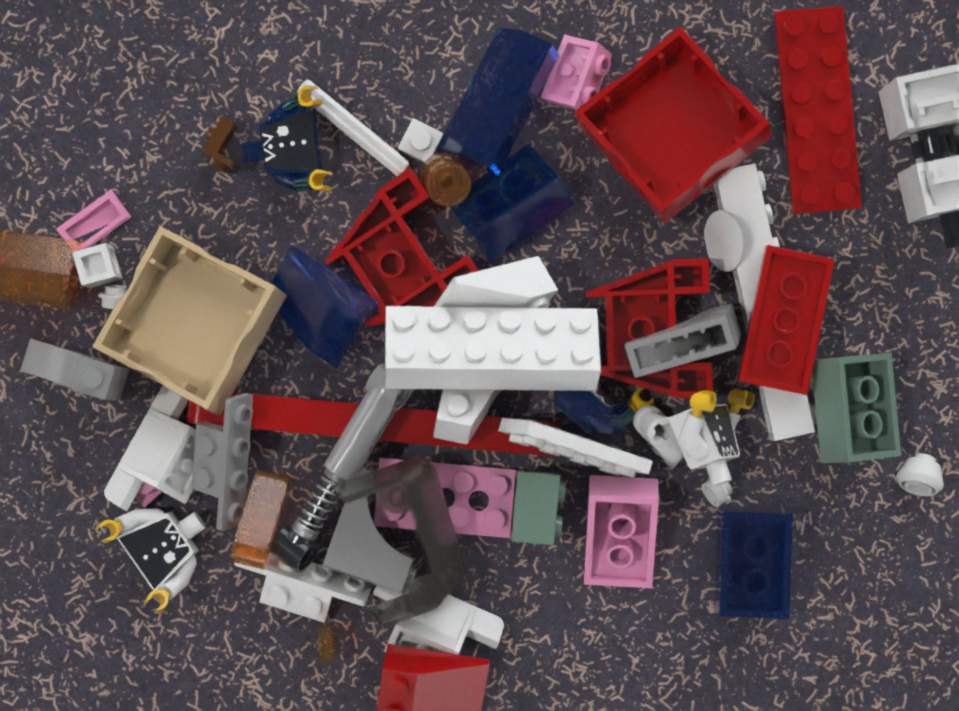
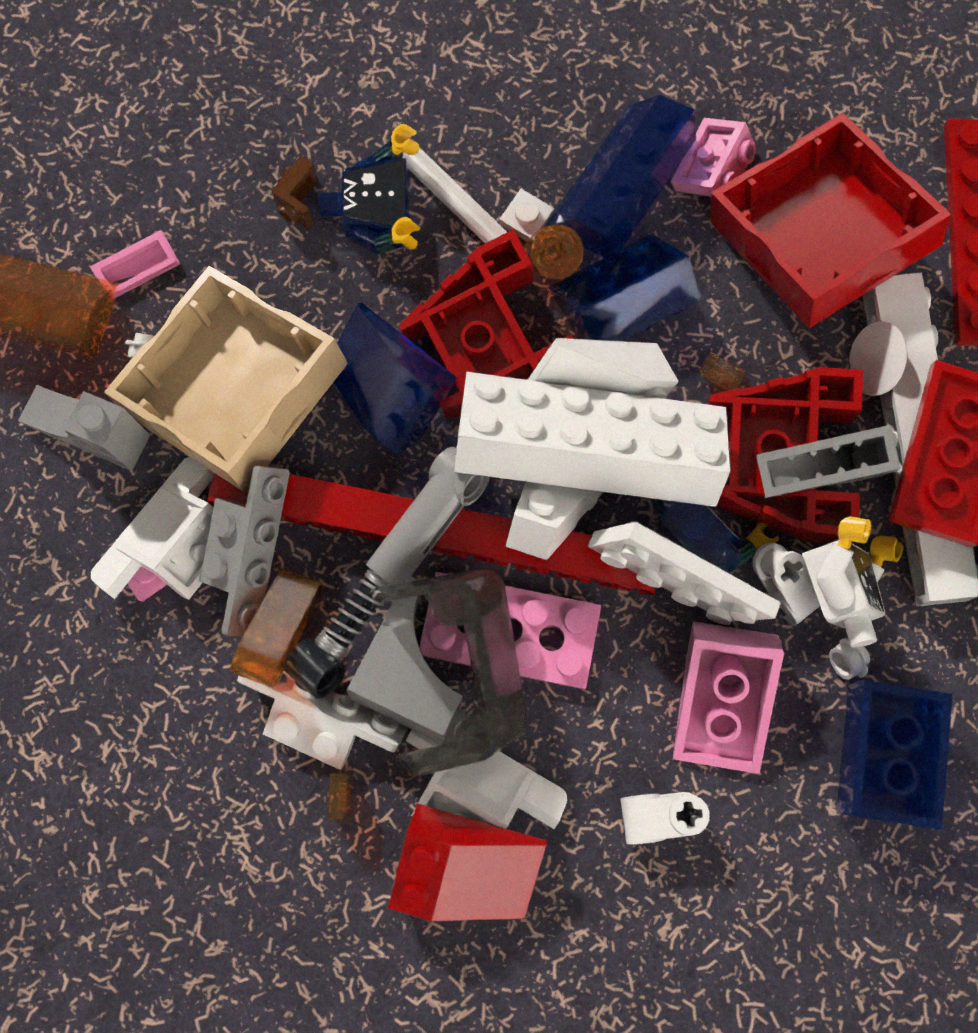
camera: 10 degrees right, 10 degrees down
(97, 265) = (128, 306): white brick -> none
(158, 548) = (146, 650): torso -> none
(536, 507) = (625, 648): sand green brick -> none
(571, 632) = (654, 818): none -> white piece
(597, 264) = (721, 372): none -> clear orange tile

